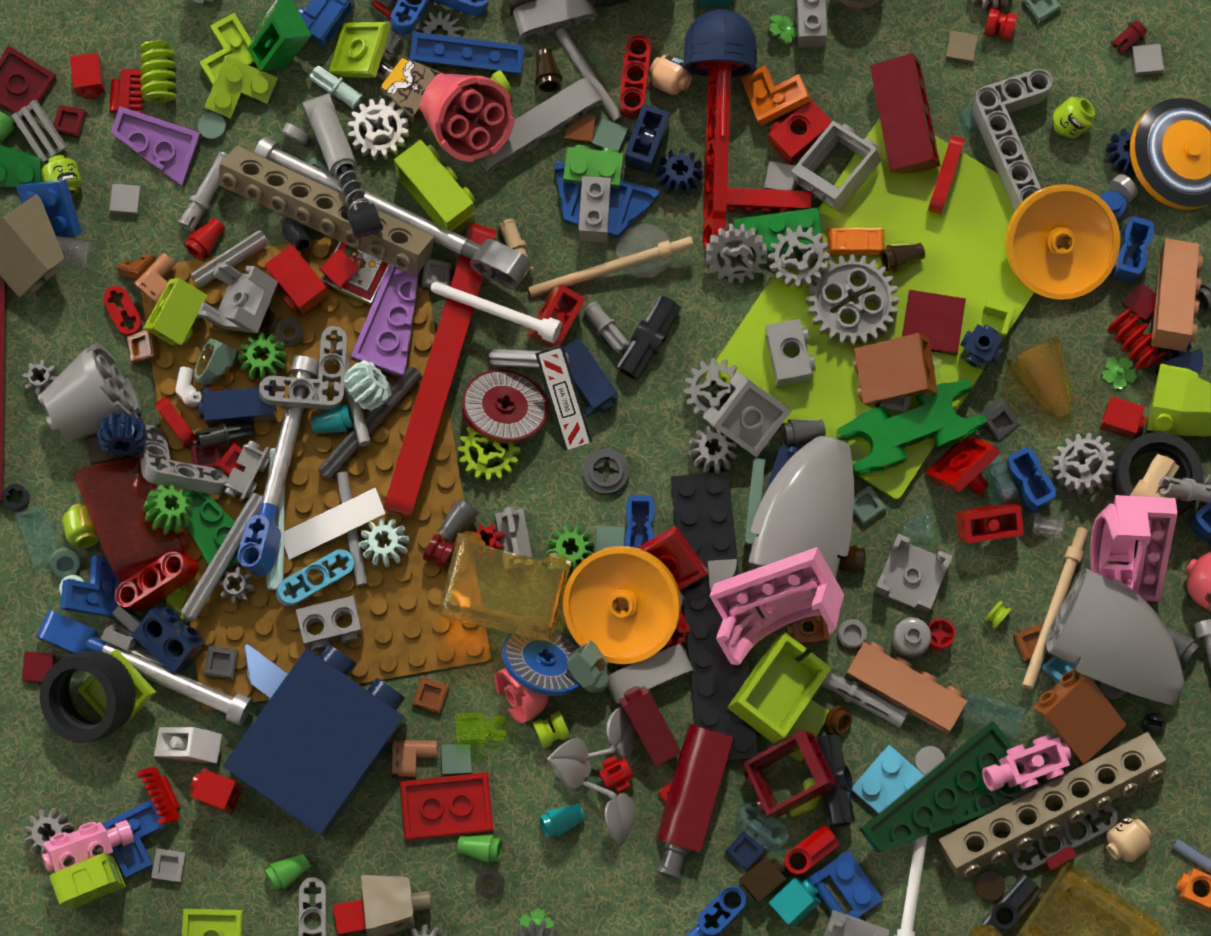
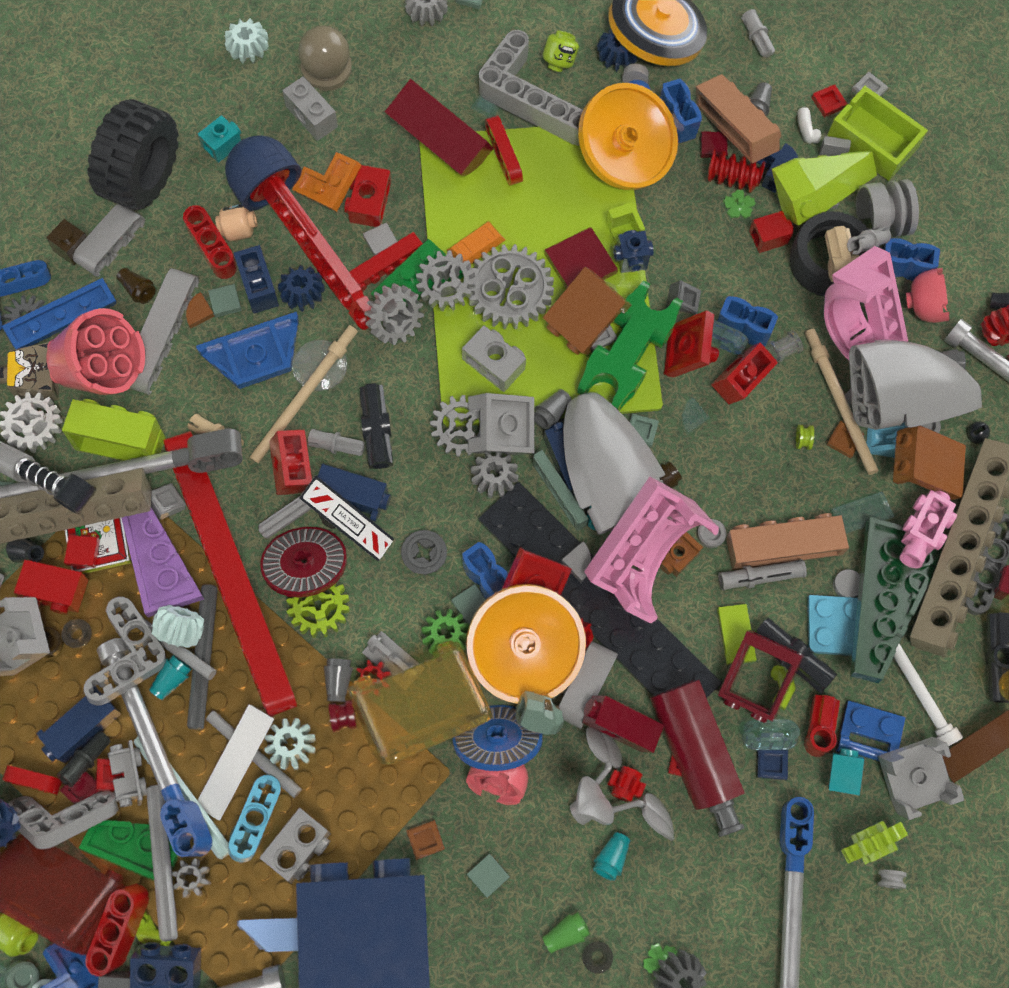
camera: 45 degrees left, 5 degrees down
(168, 509) = (71, 862): bright green gear -> none
(185, 390) = (20, 747): white arm -> none
(214, 361) = (29, 704): sand green rock -> none
(221, 662) = (227, 954): dark grey tile -> none
(269, 348) = (68, 659): bright green gear -> none
(406, 754) = (443, 903): nougat piece -> none
(446, 806) = (511, 922): red tile -> none
(473, 728) = (484, 839): clear neon green plate -> none
(545, 732) = (541, 791): lime wheel -> none
(547, 328) = (293, 473): white piece -> none
(588, 73) = (167, 265): light grey bar -> none
(593, 163) = (230, 329): bright green bracket -> none
(594, 209) = (257, 357): light grey brick -> none
(763, 879) = (806, 775): dark brown brick -> none
(779, 688) = (698, 615): lime piece -> none
(782, 28) = (296, 134): bright green plant -> none
(820, 188) = (419, 222): light grey window -> none
(838, 720) = (757, 606): reddish brown plate -> none
(900, 256) = (518, 230): dark brown cone -> none
(911, 637) = (759, 501): light grey head -> none
(912, 575) = (720, 455): light grey panel -> none
(944, 634) = (781, 480): red wheel -> none
(961, 47) = (438, 60): dark tan tile -> none
(990, 886) = (970, 643): dark brown tile -> none
(1006, 27) = (455, 24): red wheel -> none
(1045, 376) = (694, 240): clear yellow cone -> none
(1087, 460) = (773, 282): light grey gear -> none

